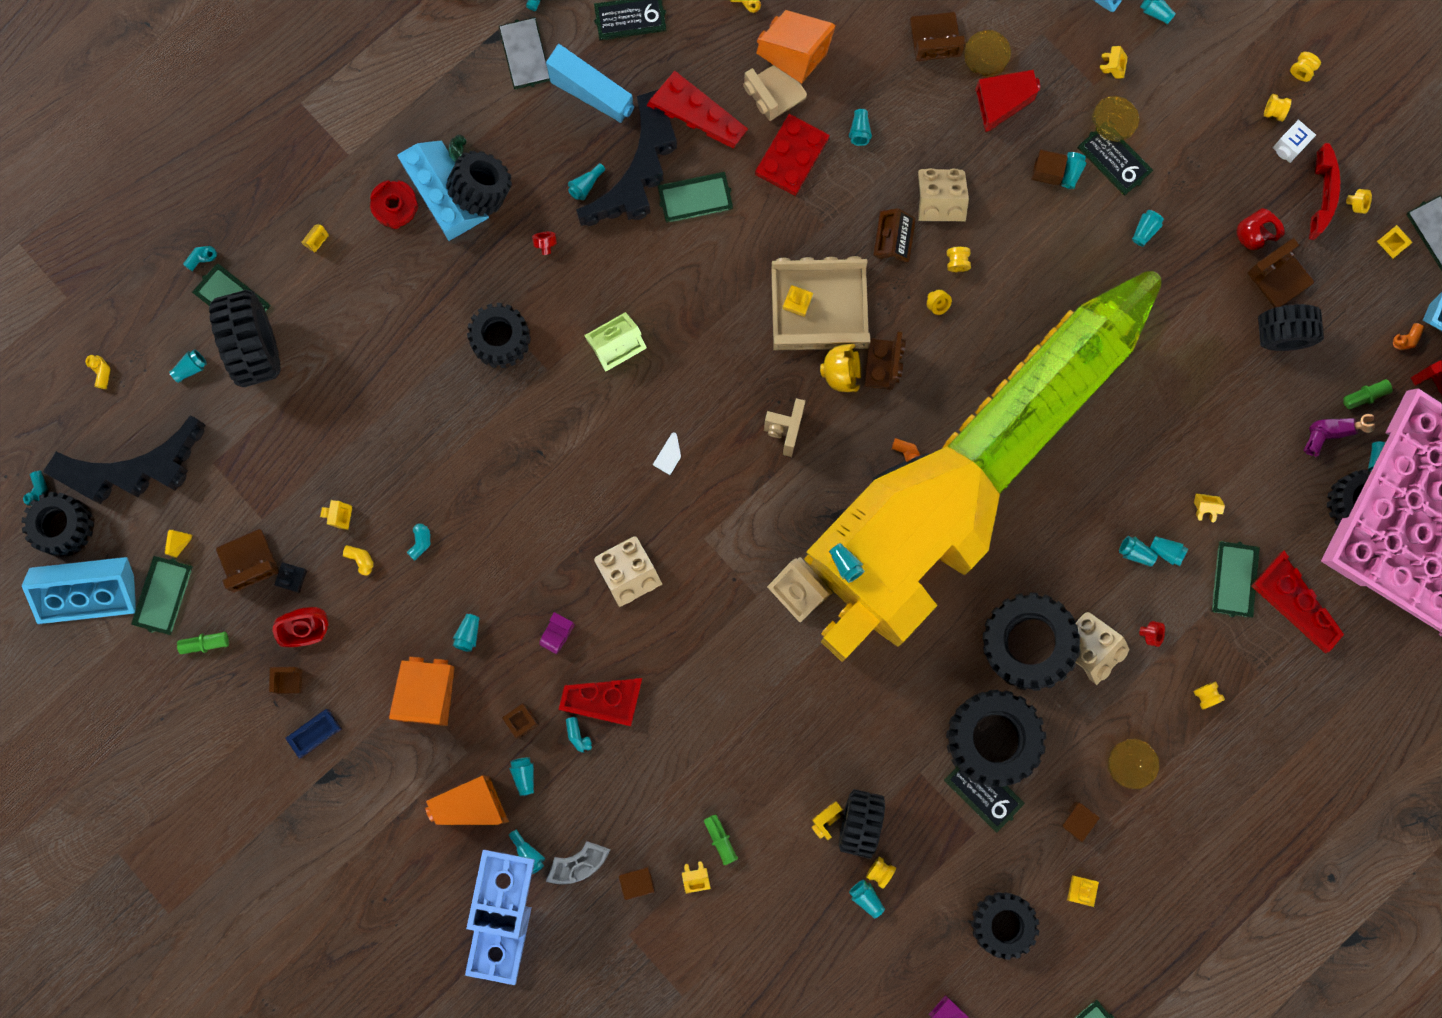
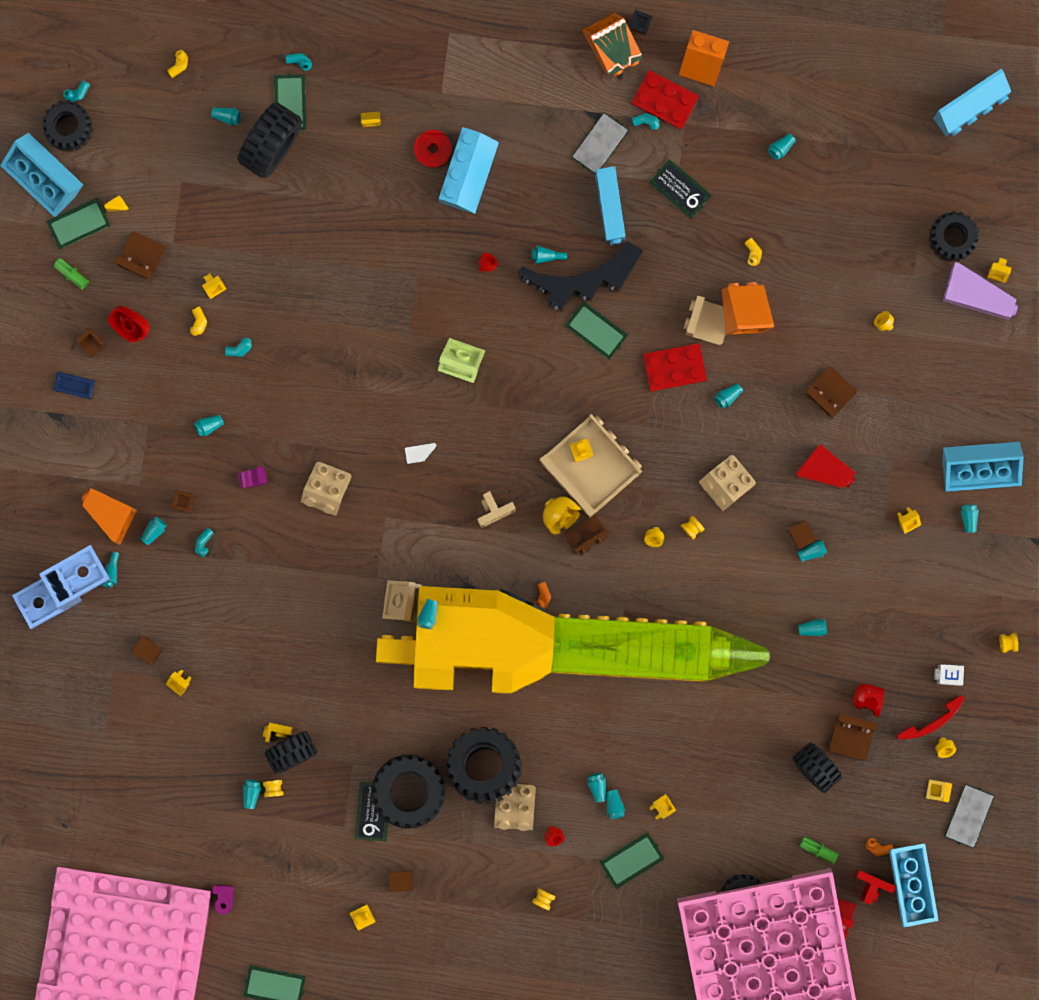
camera: 45 degrees right, 5 degrees up
(132, 475) = (153, 154): black arch -> none
(290, 577) = (153, 290): black tile -> none
(423, 692) = (152, 429): orange slope -> none
(456, 146) = (498, 158): clear green arm -> none
(478, 183) = (500, 192): black tyre -> none
(495, 317) = (398, 271): black tyre -> none
(578, 866) = (128, 608): light grey tile -> none
(603, 700) = (236, 540): red wing -> none
(692, 106) = (649, 277): red wing -> none
(720, 839) = (213, 678): bright green axle -> none
(894, 235) = (675, 475): reddish brown panel -> none
(987, 53) = (848, 434): clear yellow tile -> none
(1026, 925) = (318, 893): black tyre -> none
(1115, 118) = (871, 550): clear yellow tile -> none
(1116, 161) = (845, 571): piece -> none
(1133, 764) = (464, 887): clear yellow tile -> none
(1277, 107) = (965, 646): yellow wheel -> none
(1288, 593) = (648, 903): red wing -> none
(1335, 429) = (778, 845): magenta arm -> none

